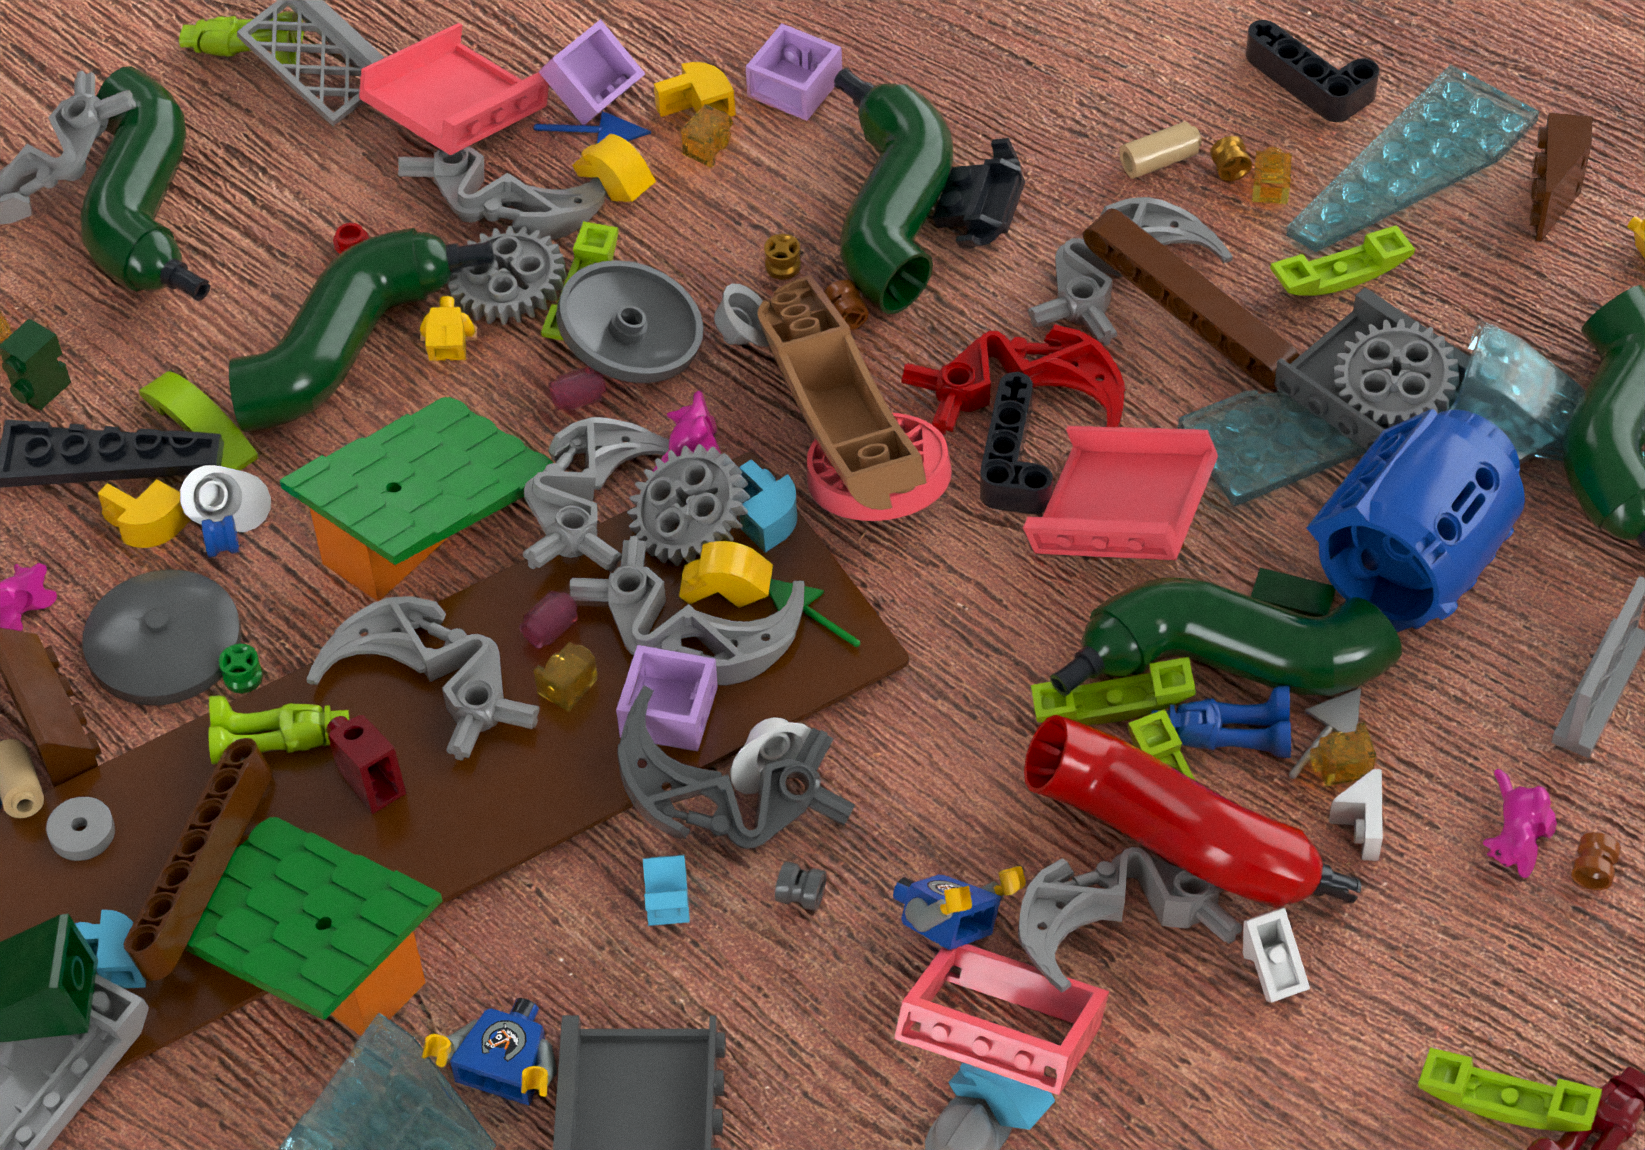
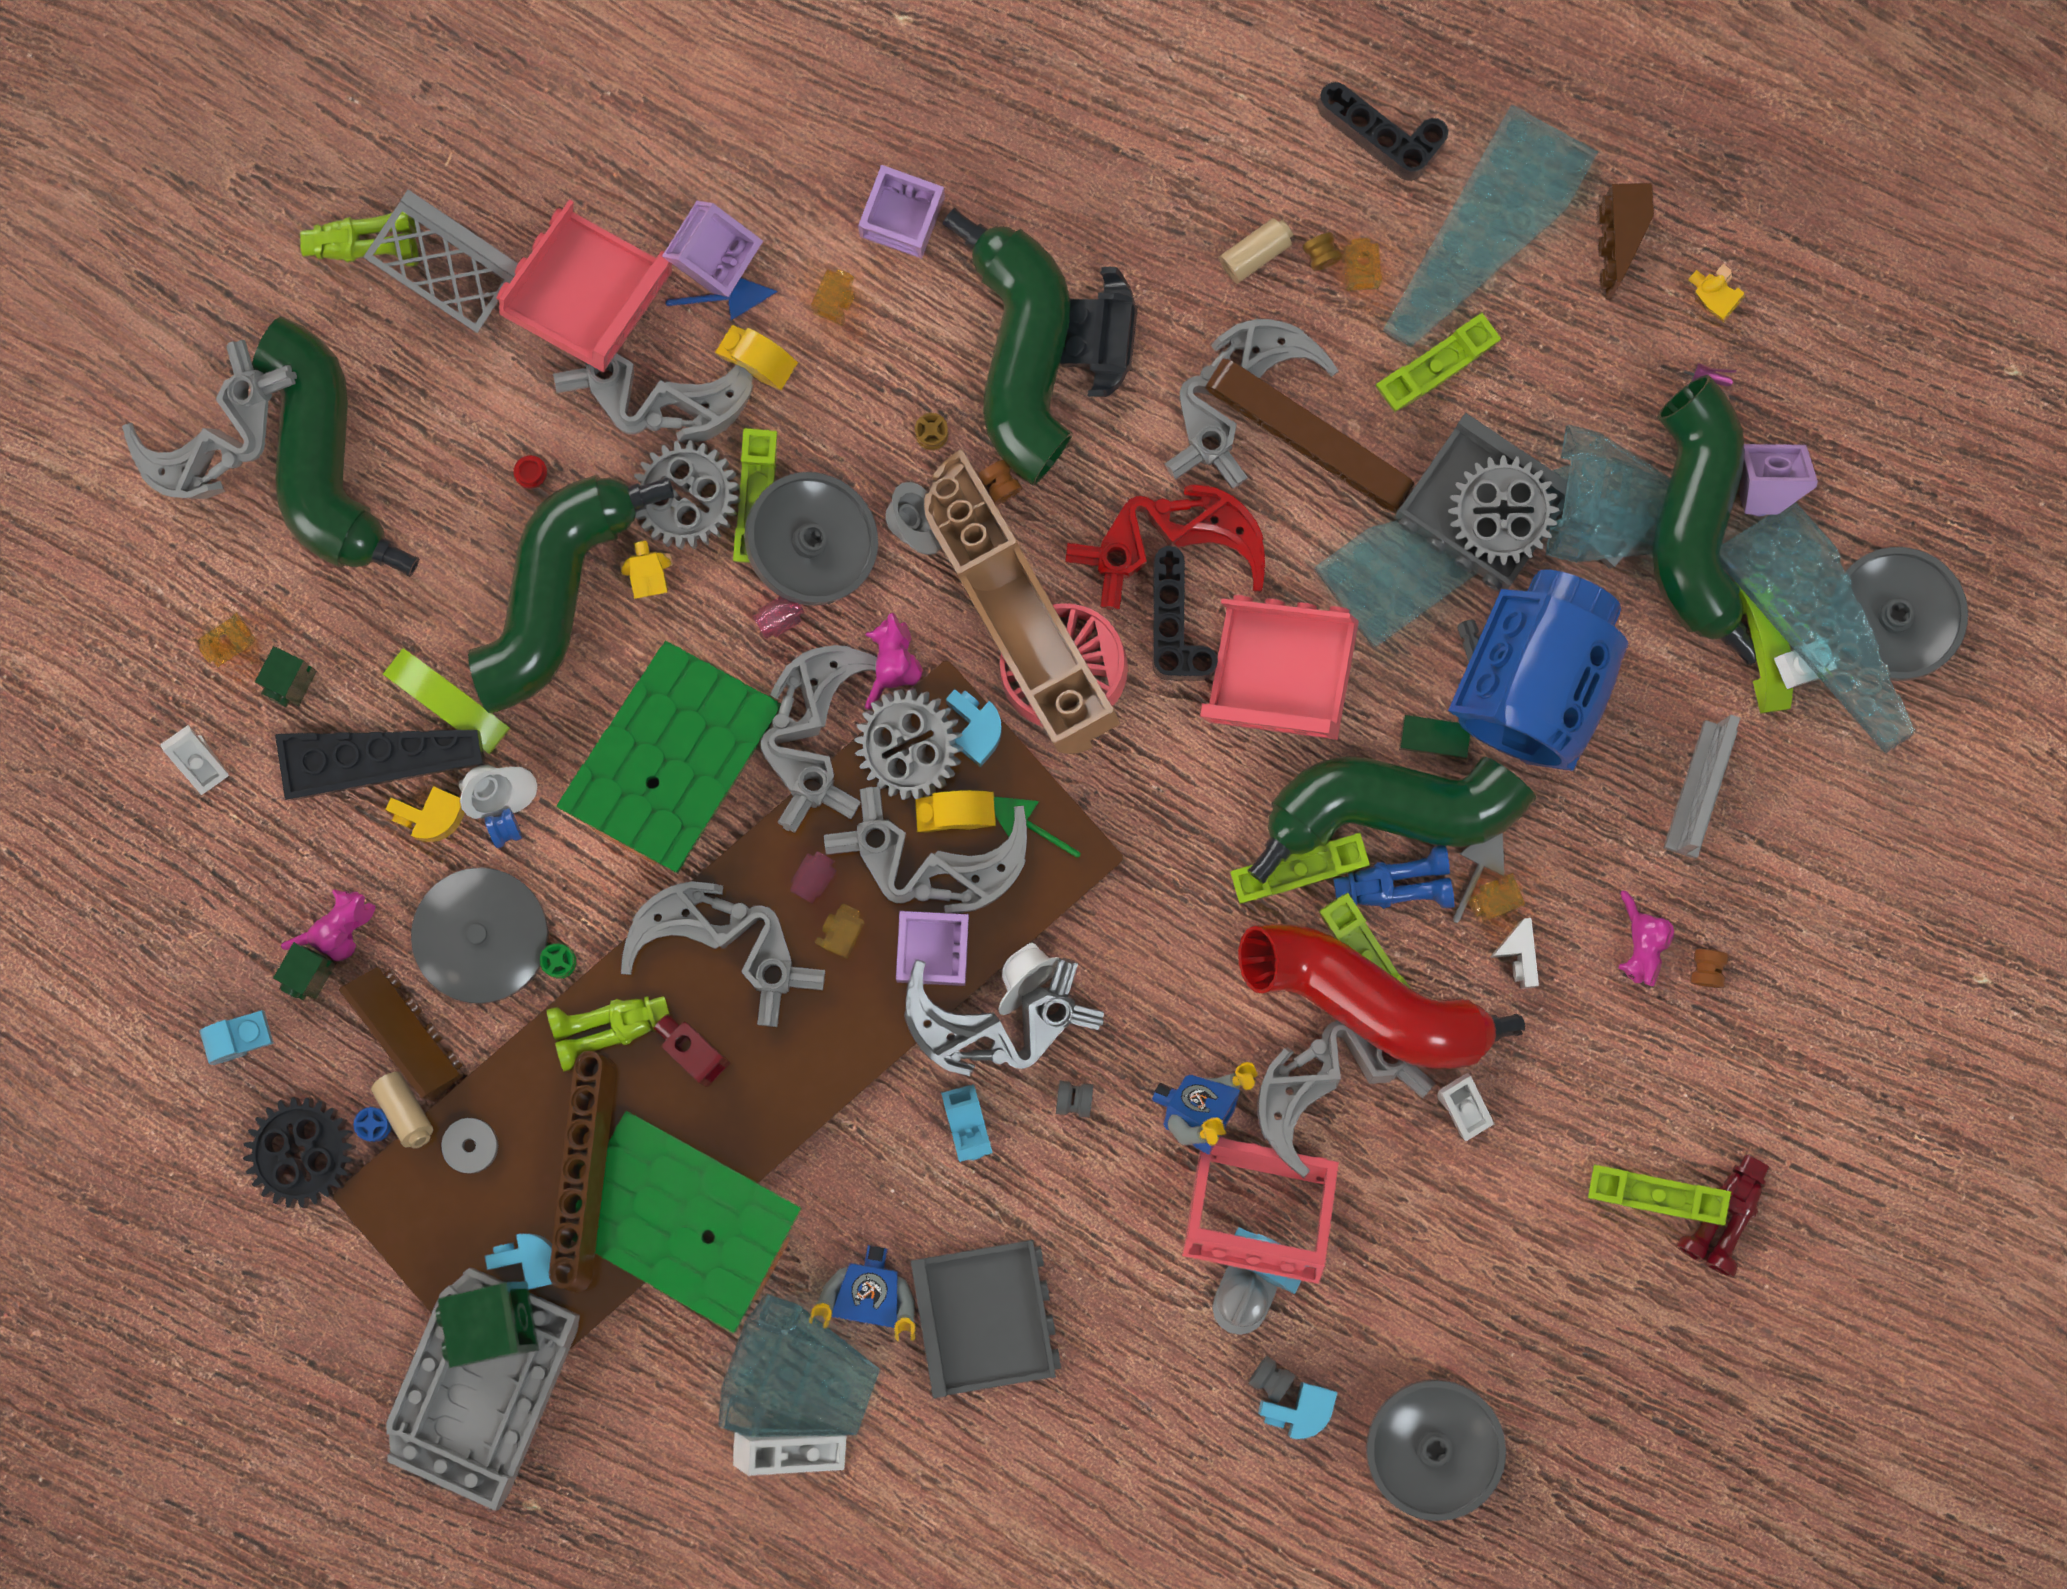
camera: 15 degrees left, 30 degrees up
(694, 88) = (814, 237): yellow brick -> none

